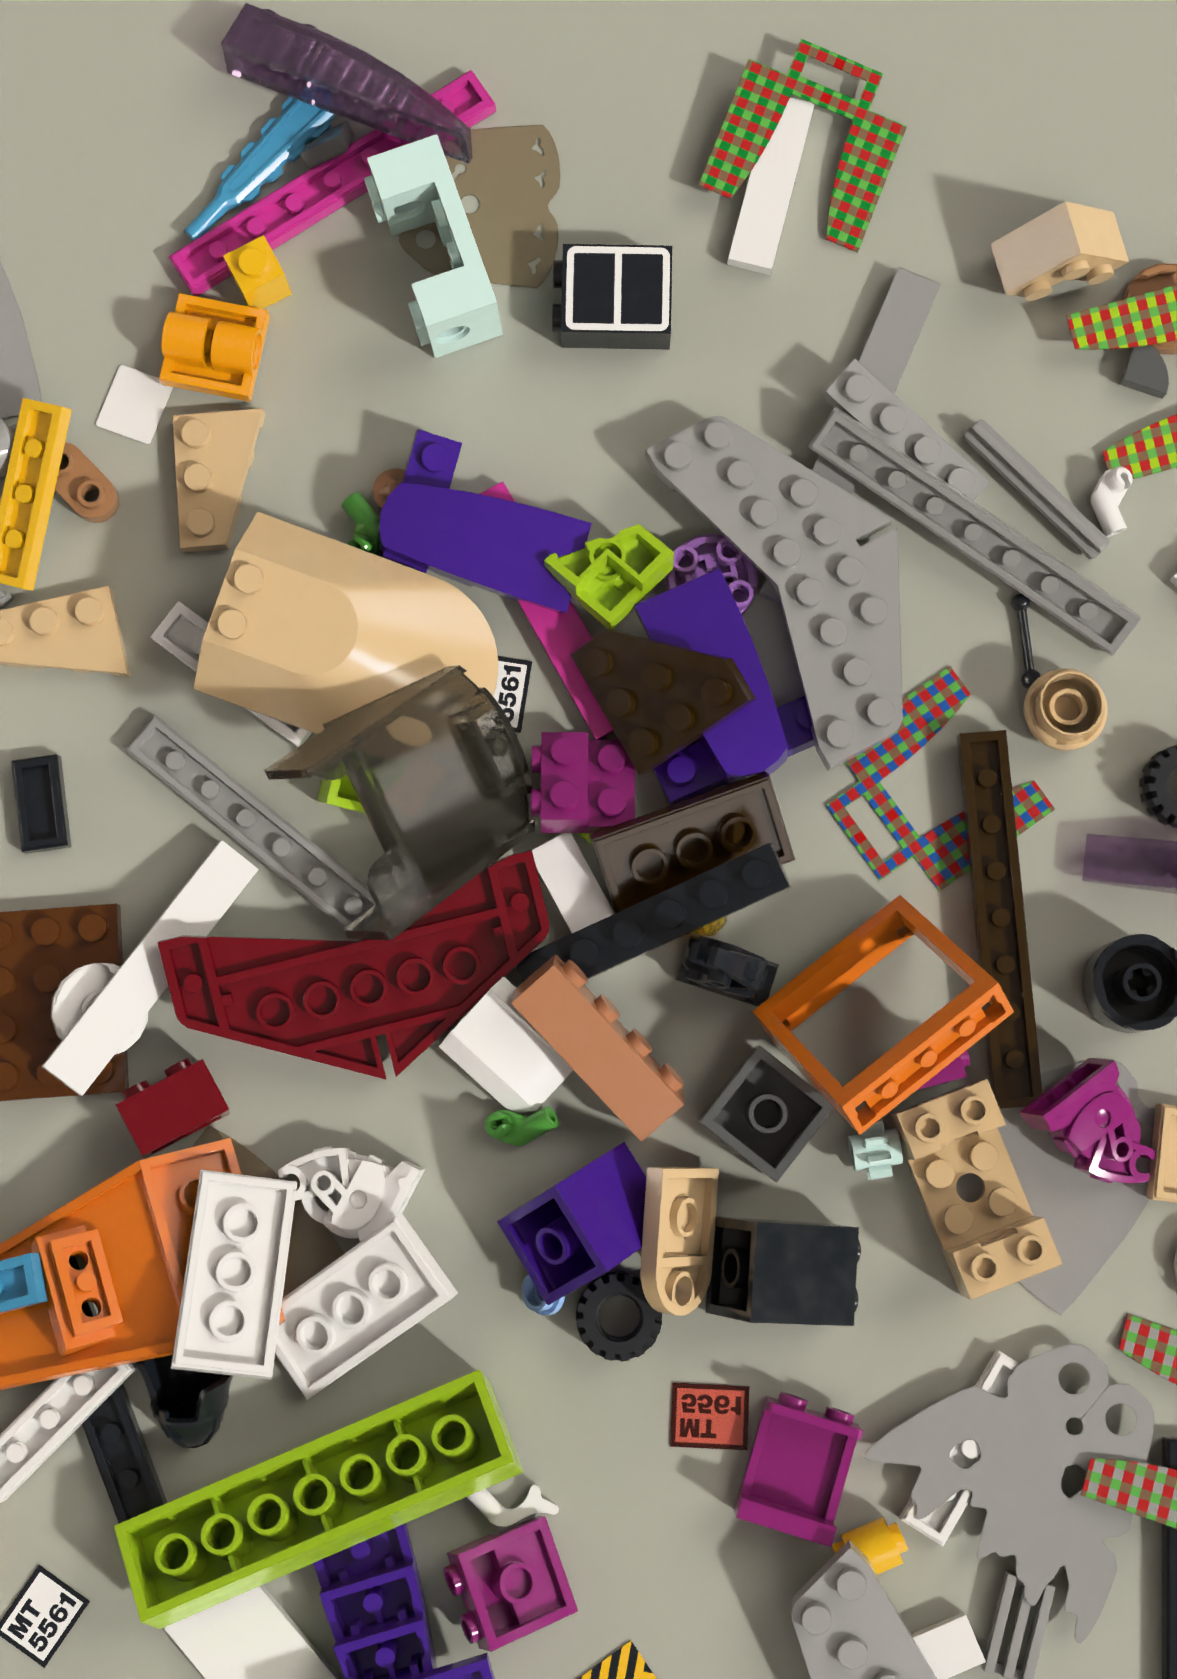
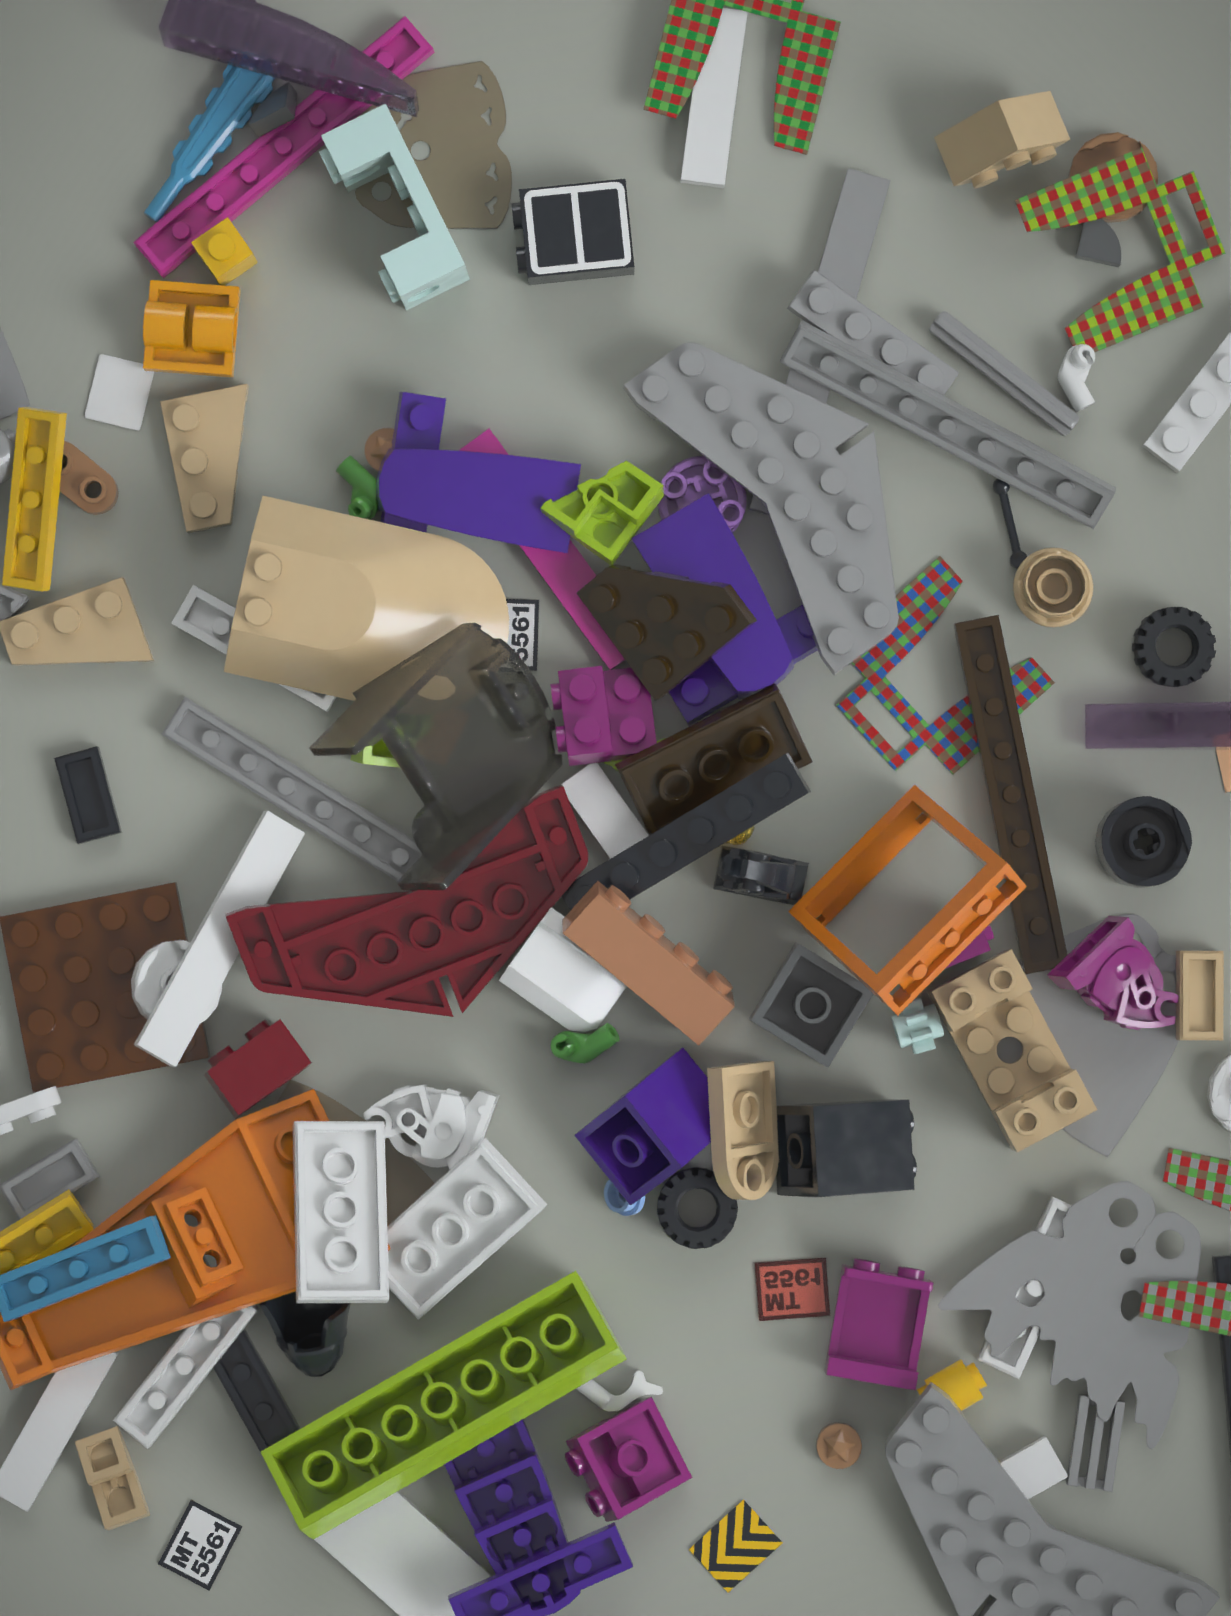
camera: 10 degrees left, 5 degrees up
(740, 1594) = (838, 1445): none -> medium nougat tile

